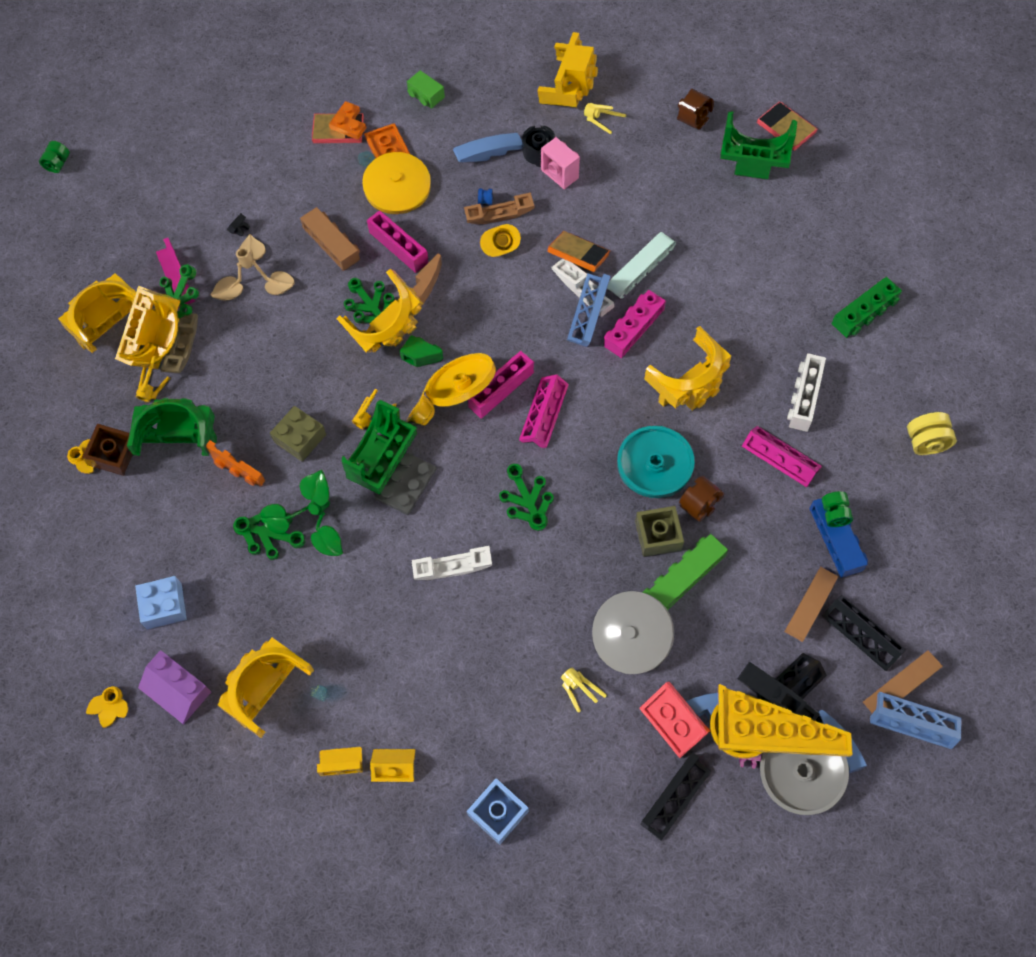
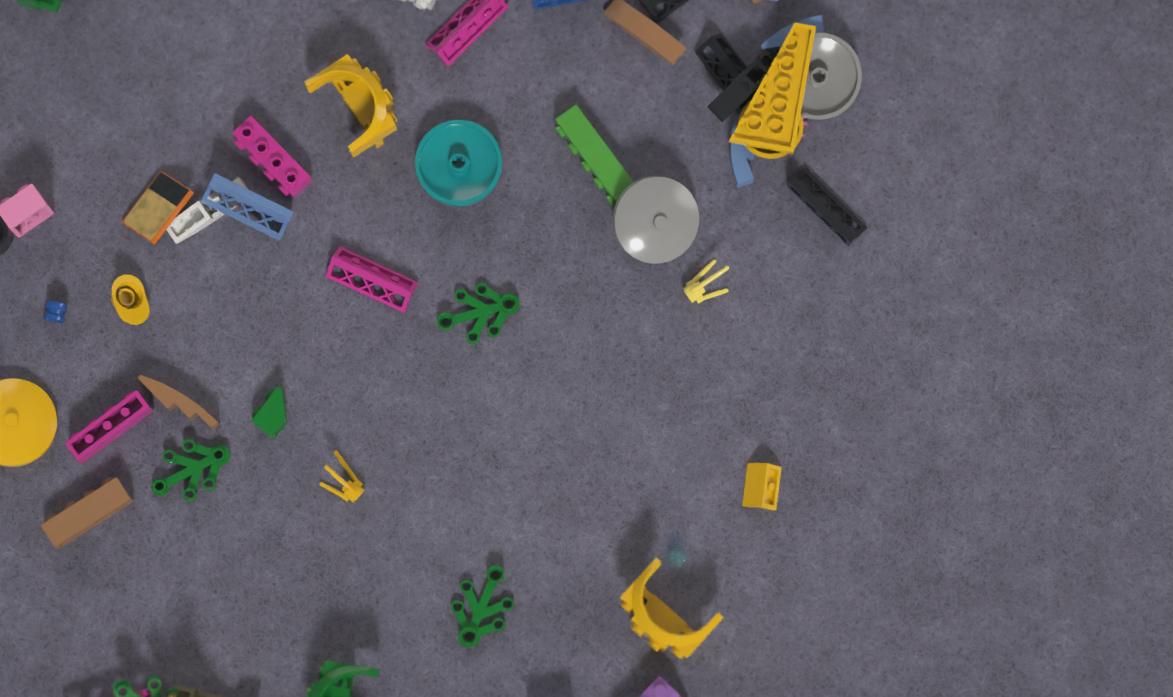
camera: 85 degrees left, 15 degrees up
(237, 224) = (43, 631): black tile -> none
(240, 468) = (410, 622): orange wing -> none
(249, 251) = (87, 615): tan plant -> none
(298, 433) = (362, 565): olive brick -> none
(314, 488) = (456, 543): green plant -> none
(340, 761) = (751, 540): yellow panel -> none
(376, 456) = (396, 481): green piece -> none
(391, 323) = (234, 441): yellow piece -> none
(406, 483) = (440, 447): dark grey plate -> none
(423, 411) = (351, 419): yellow piece -> none
(453, 565) = (549, 402): white slope -> none
(460, 379) = (325, 367): yellow dish -> none
(497, 811) = (824, 382): light blue brick -> none
(499, 212) = (78, 296): medium nougat slope -> none
(504, 382) = (334, 323): dark pink brick -> none
(642, 263) = (188, 134): light aqua beam -> none
(659, 531) = (543, 173): olive brick -> none
(674, 719) = (752, 193): coral tile -> none
(701, 498) = (512, 121): reddish brown brick -> none

